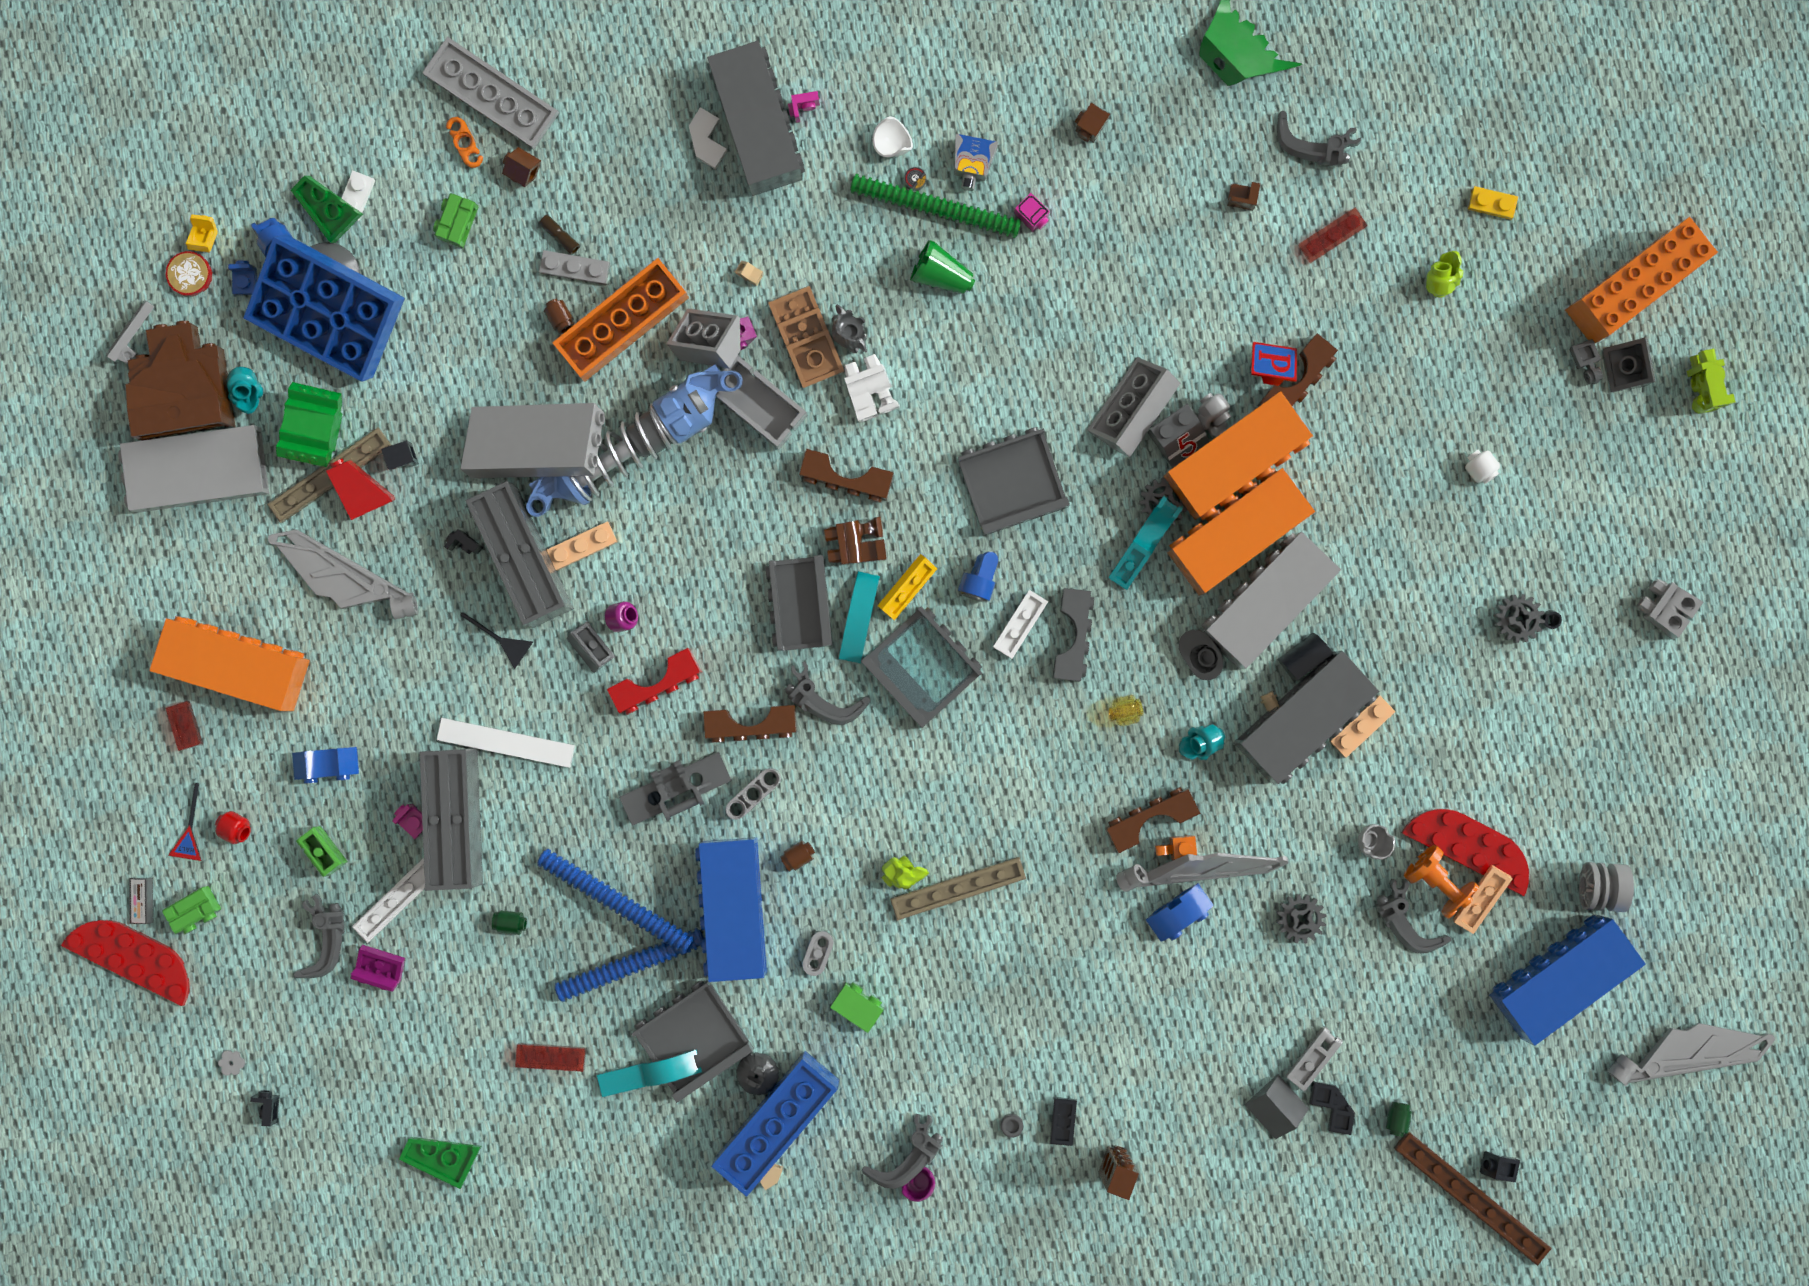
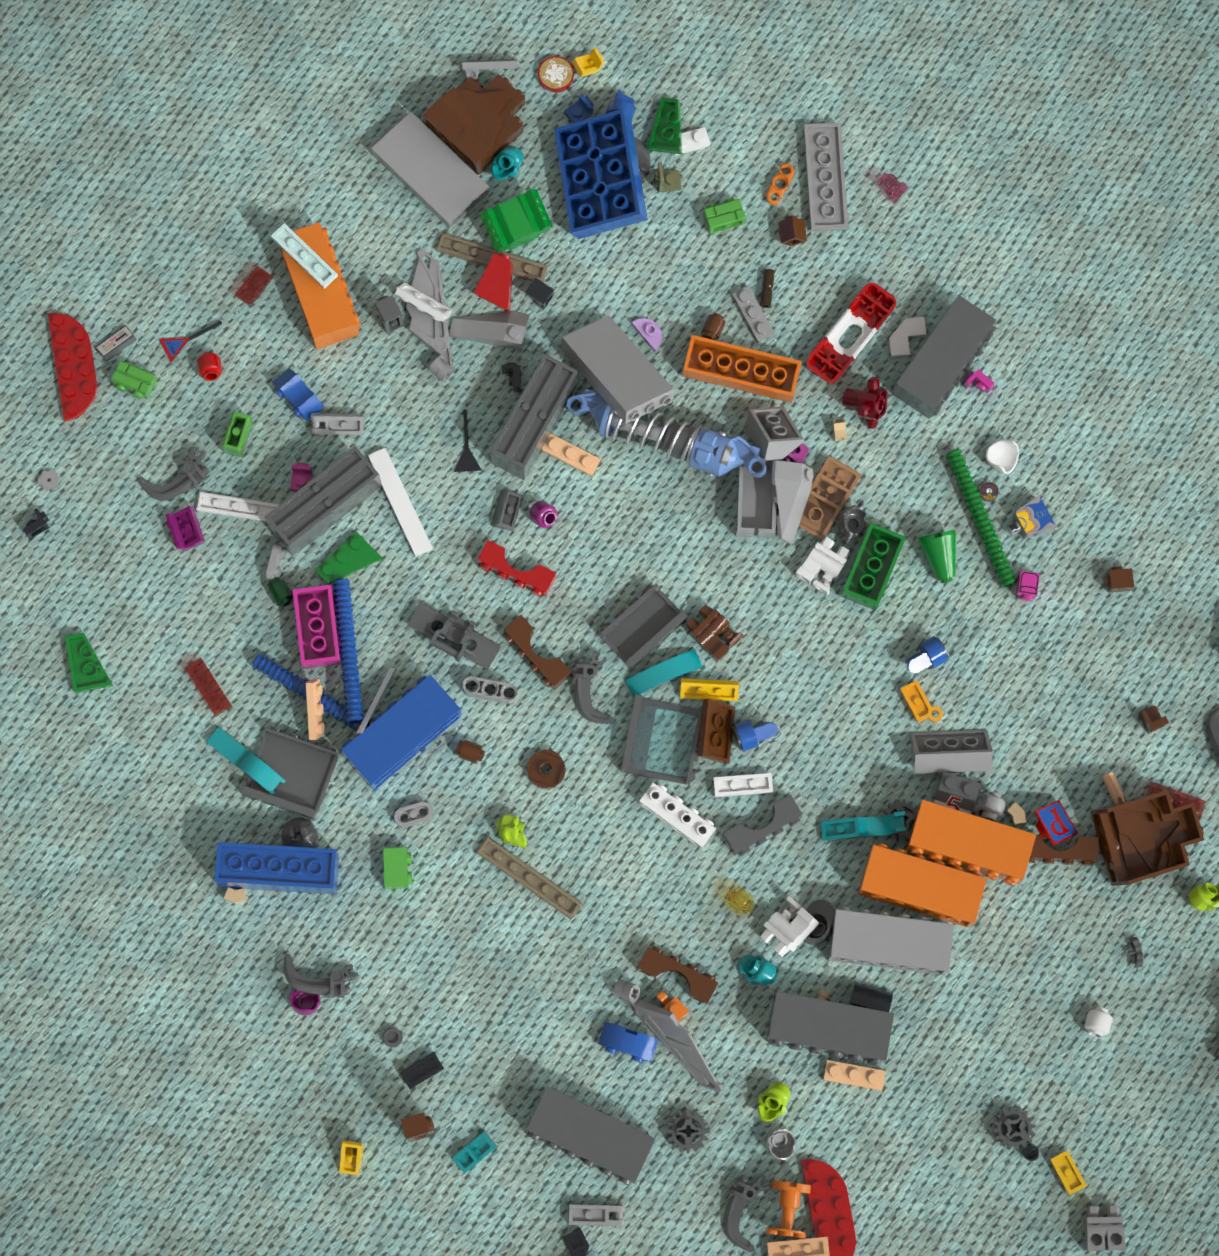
camera: 45 degrees right, 10 degrees down
(189, 659) = (304, 256): none -> light aqua plate
(310, 617) = (389, 313): none -> dark grey brick
(324, 575) = (423, 302): none -> white plate
(379, 247) = (666, 180): none -> olive bracket
(383, 747) = (337, 424): none -> light grey plate
(403, 524) = (495, 329): none -> light grey wedge
(471, 900) = (277, 554): none -> light grey plate
(517, 379) = (649, 331): none -> lavender plate
(525, 831) = (347, 559): none -> green wing
(554, 36) = (895, 189): none -> clear pink plate
(569, 913) = (316, 626): none -> dark pink brick
(649, 975) = (314, 709): none -> light nougat plate
(655, 157) = (868, 312): none -> red piece
(700, 943) = (375, 701): none -> white sticker
(745, 224) = (870, 401): none -> dark red piece
(775, 361) = (792, 488): none -> light grey wedge
(865, 809) = (541, 759): none -> reddish brown plate
(874, 483) = (762, 615): reddish brown arch -> none
(906, 343) = (873, 566): none -> green brick
(952, 611) = (716, 731): none -> reddish brown plate
(1003, 708) = (677, 815): none -> white brick
(1012, 481) = (836, 707): dark grey panel -> none
(1030, 354) = (932, 654): none -> piece
(1066, 401) = (919, 703): none -> light orange hinge
(1093, 1245) = (351, 1157): none -> yellow slope
(1173, 1127) = (474, 1152): none -> teal slope
(1191, 689) = (789, 933): none -> white hips
(1236, 391) = (1017, 814): none -> tan piece
(1241, 1013) = (590, 1136): none -> dark grey brick
(1277, 1107) = (543, 1215): dark grey slope -> none
(1293, 285) = (1113, 788): none -> light nougat piece
(1332, 819) = (773, 1101): none -> lime head
(1351, 289) = (1145, 836): none -> reddish brown panel
(1445, 380) = (1137, 952): none -> dark grey piece
(1594, 600) = (1068, 1172): none -> yellow plate

